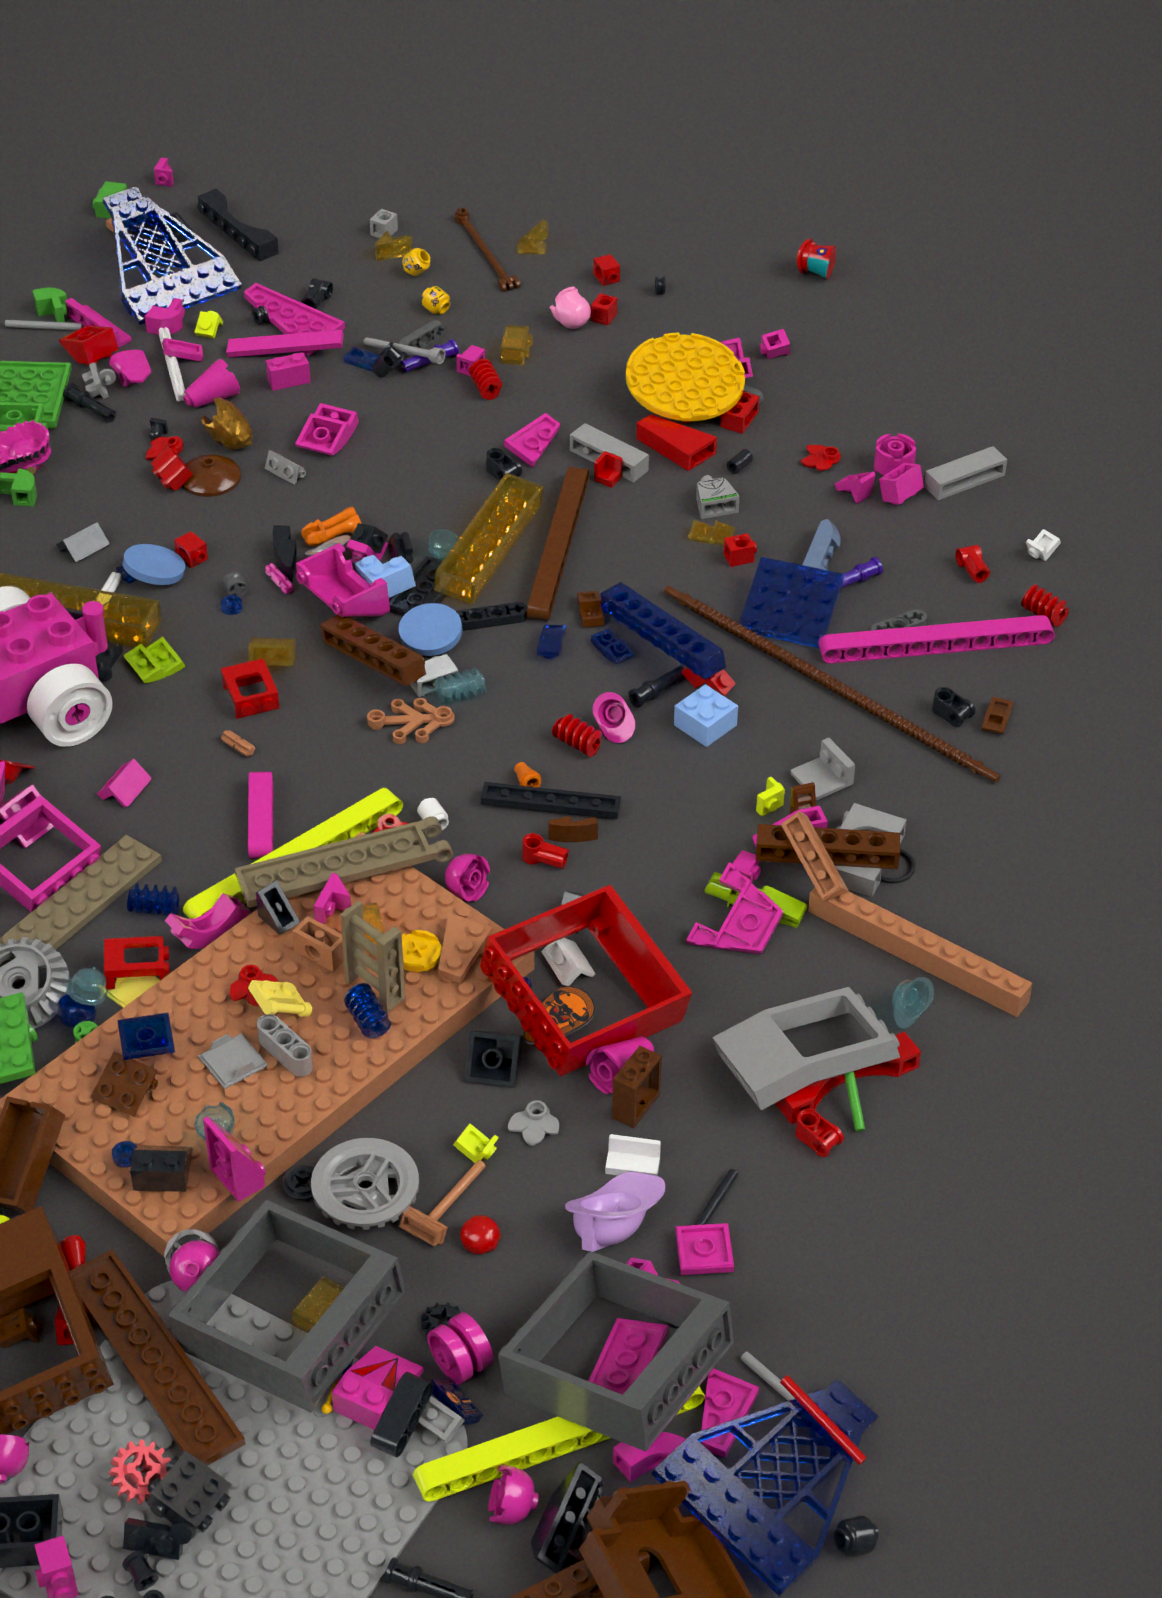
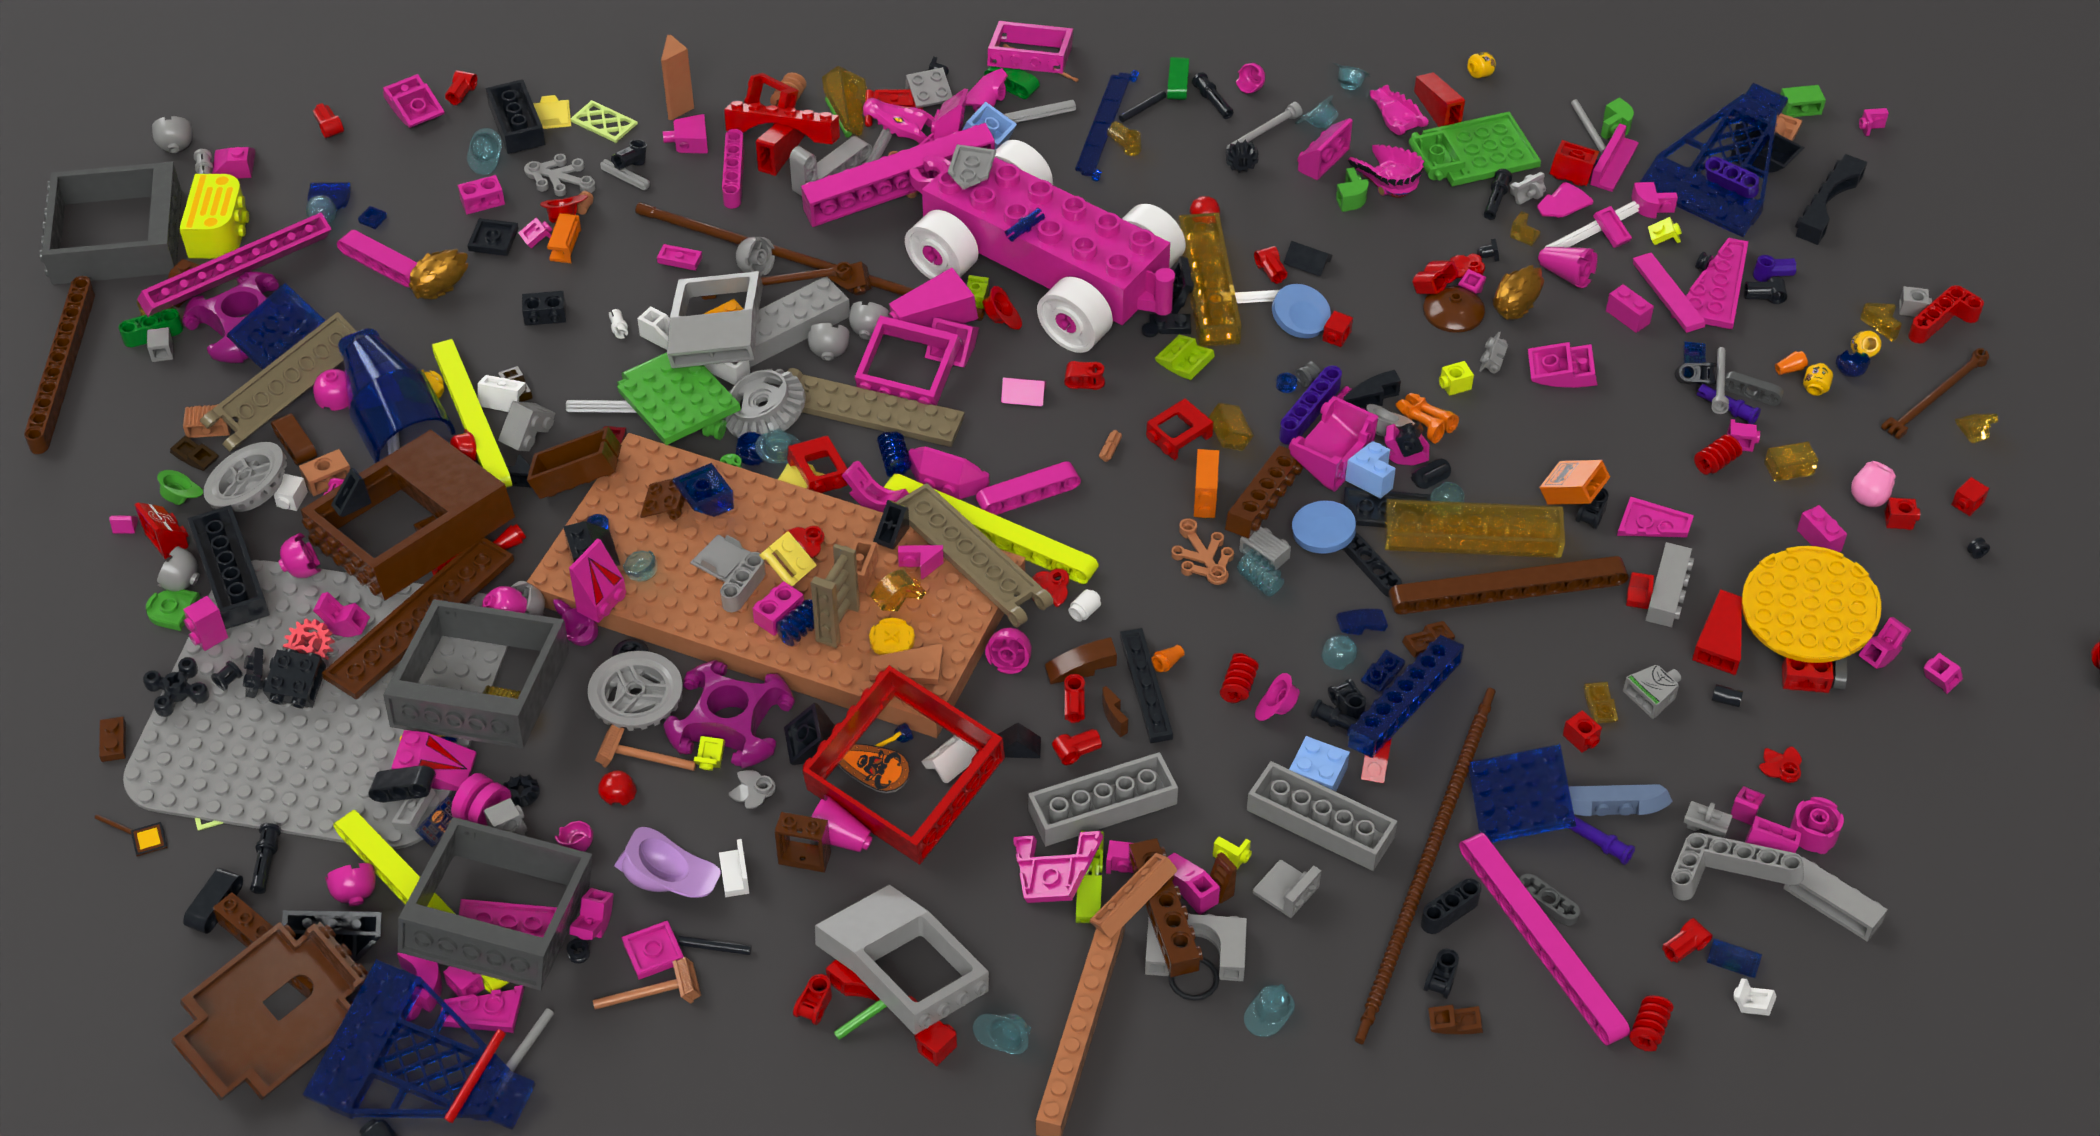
camera: 70 degrees right, 5 degrees up
(69, 567) = (1270, 261): none -> red piece
(119, 1429) = (341, 620): none -> dark pink brick
(135, 733) = (1082, 375): none -> red piece
(147, 403) = (1522, 232): none -> clear yellow panel
(190, 256) = (1727, 170): none -> dark purple beam
(190, 449) = (1472, 281): none -> dark pink slope
(204, 866) = (947, 472): none -> dark pink wedge
(239, 1213) = (579, 628): none -> magenta hair
(275, 595) = (1310, 404): none -> dark purple beam
(294, 280) = (1769, 267): none -> dark purple piece
(301, 496) = (1456, 378): none -> neon yellow brick
(336, 1025) = (775, 606): none -> dark pink brick
(338, 684) = (1206, 483): none -> orange brick
(404, 204) = (1951, 303): none -> red beam
(407, 307) = (1794, 362): none -> orange cone
(431, 276) = (1852, 364): none -> clear blue hair
(434, 1134) = (737, 731): none -> magenta piece
(474, 462) = (1574, 482): none -> orange brick
(499, 1326) = (506, 817): none -> light grey brick
(502, 834) = (1082, 660): none -> reddish brown slope
(534, 1281) = (575, 835): none -> dark pink hair
(576, 666) = (1339, 652): none -> clear light blue hair
(600, 353) = (1821, 529): none -> dark pink brick
(600, 870) = (1071, 748): none -> red piece
(636, 673) = (1348, 698): none -> black piece
(677, 862) = (1102, 798): none -> light grey brick
(686, 1421) = (463, 981): none -> dark pink brick
(753, 1230) = (685, 980): none -> nougat piece
(760, 726) = (1321, 815): none -> light grey brick
(863, 510) = (1708, 819): none -> light grey hips
(885, 681) = (1444, 913): none -> black beam
(896, 519) = (1734, 857): none -> light grey beam
(943, 825) = (1269, 1011): none -> clear light blue piece
(997, 545) = (1734, 958): none -> clear blue tile

